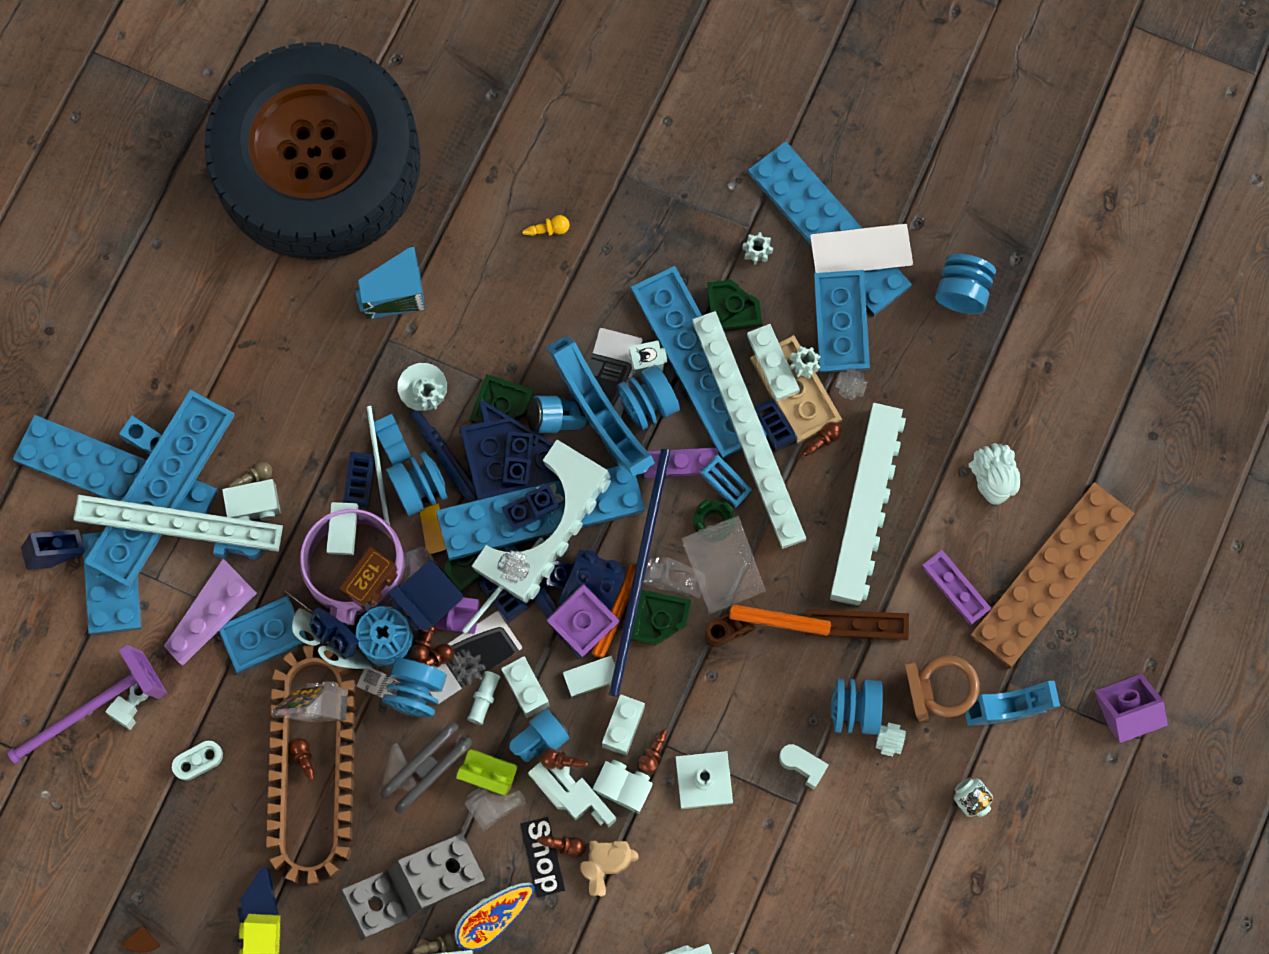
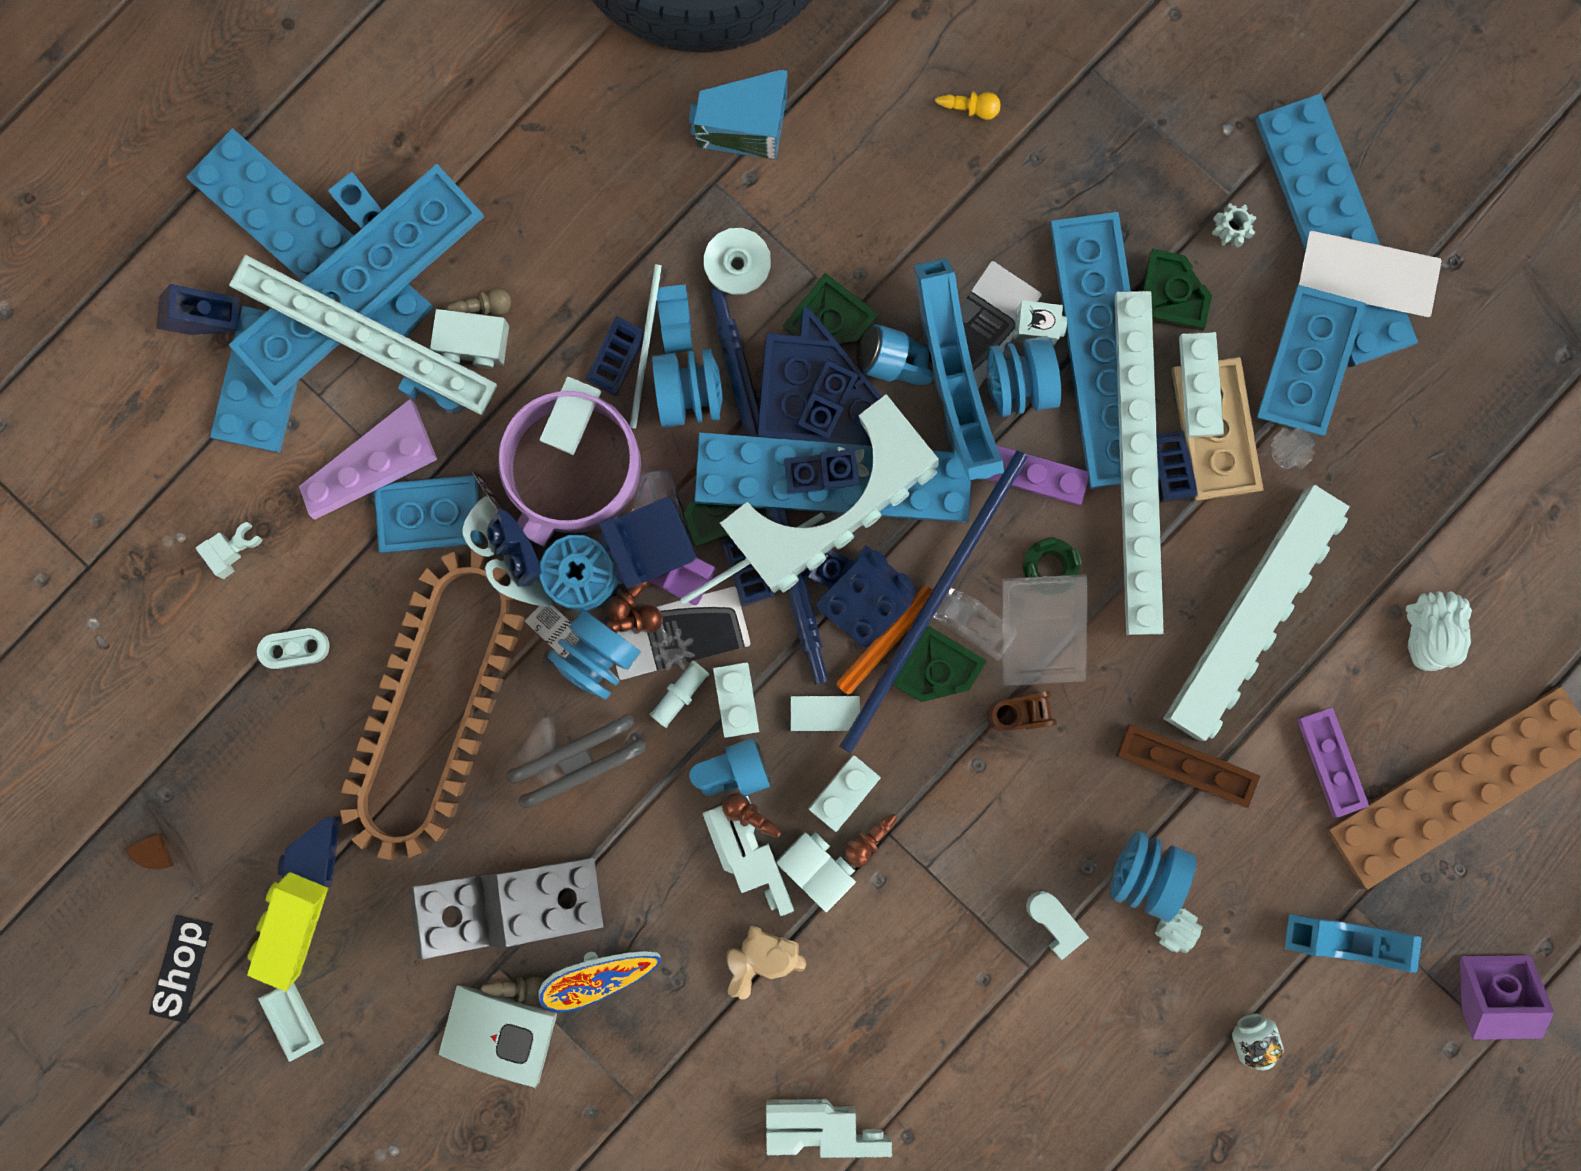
camera: 15 degrees right, 10 degrees up
(141, 673) = (256, 516): medium lavender tile -> none
(301, 752) = (427, 678): copper bar -> none
(315, 703) = (460, 630): clear slope -> none
(369, 579) = (579, 498): reddish brown brick -> none
(428, 401) = (732, 270): light aqua gear -> none
(431, 529) = (686, 452): yellow sticker -> none
(487, 772) = (650, 794): lime bracket -> none
(491, 808) = (638, 839): clear arch -> none
(513, 566) = (772, 546): clear gear -> none
(542, 859) = (685, 921): black sticker -> none
(573, 846) = (727, 923): copper bar -> none
(582, 620) = (839, 640): medium lavender hinge -> none
(704, 780) = (922, 896): light aqua tile -> none
(710, 467) = (1072, 496): dark azure tile -> none
(780, 620) = (1092, 729): orange axle -> none
(808, 356) = (1252, 395): light aqua gear -> none
(831, 432) = (1241, 502): copper bar -> none
(922, 691) = (1243, 884): medium nougat tile -> none
(965, 283) = (1492, 366): dark azure wheel -> none

